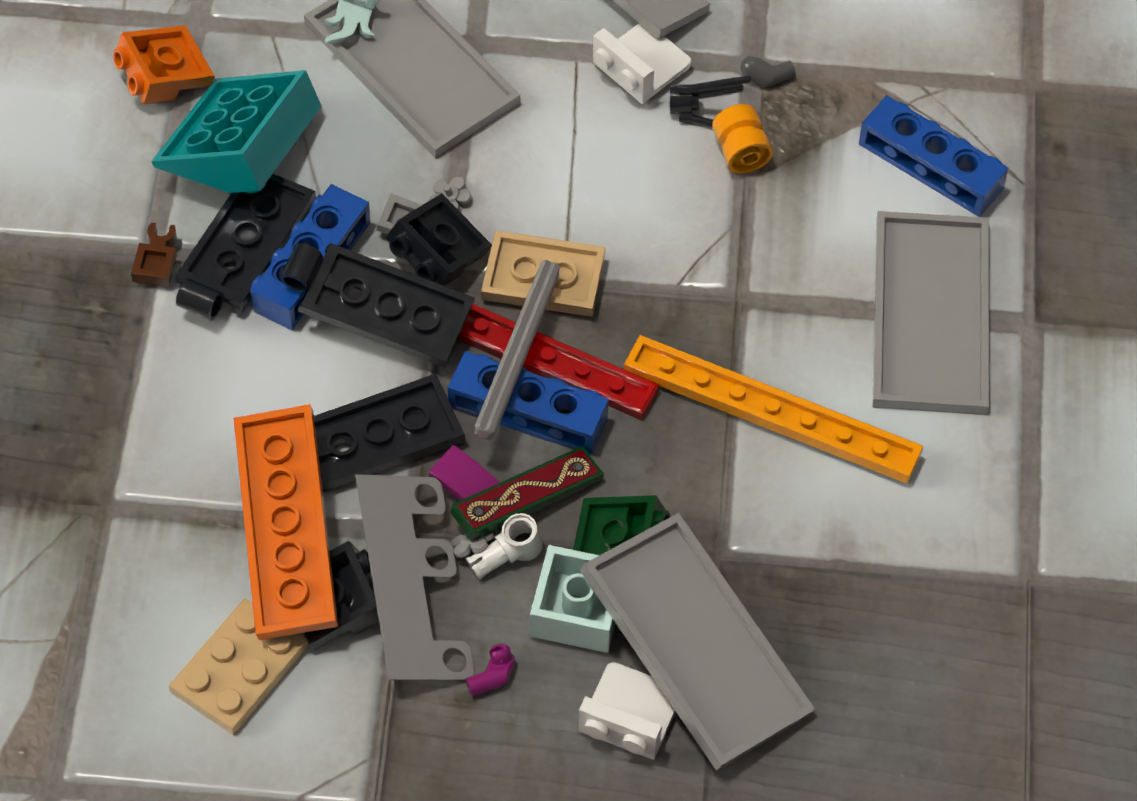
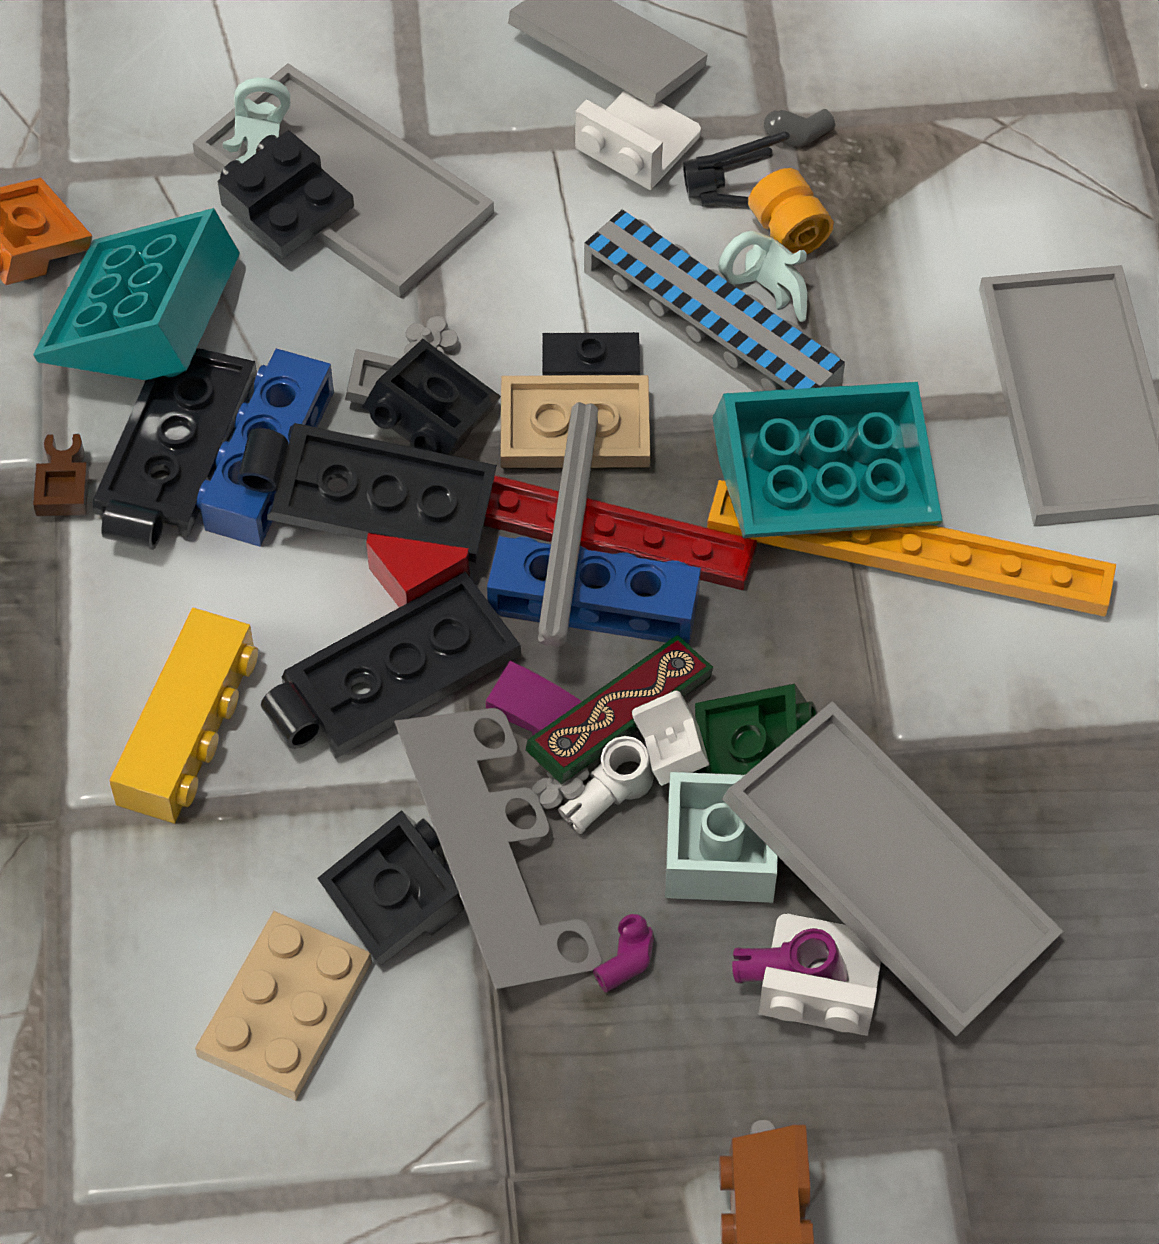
camera: 10 degrees left, 0 degrees up
(205, 447) = (184, 715): none -> yellow brick
(285, 522) = (312, 801): orange plate -> none
(362, 65) = (283, 193): none -> black plate
(399, 364) = (412, 566): none -> red slope
(559, 519) = (671, 736): none -> white bracket
(567, 224) = (590, 354): none -> black plate
(611, 693) = (792, 957): none -> magenta pin
(666, 210) = (706, 309): none -> brick
(717, 176) = (769, 265): none -> light aqua piece
(722, 332) = (827, 459): none -> teal slope
(933, 155) = (1034, 199): blue brick -> none

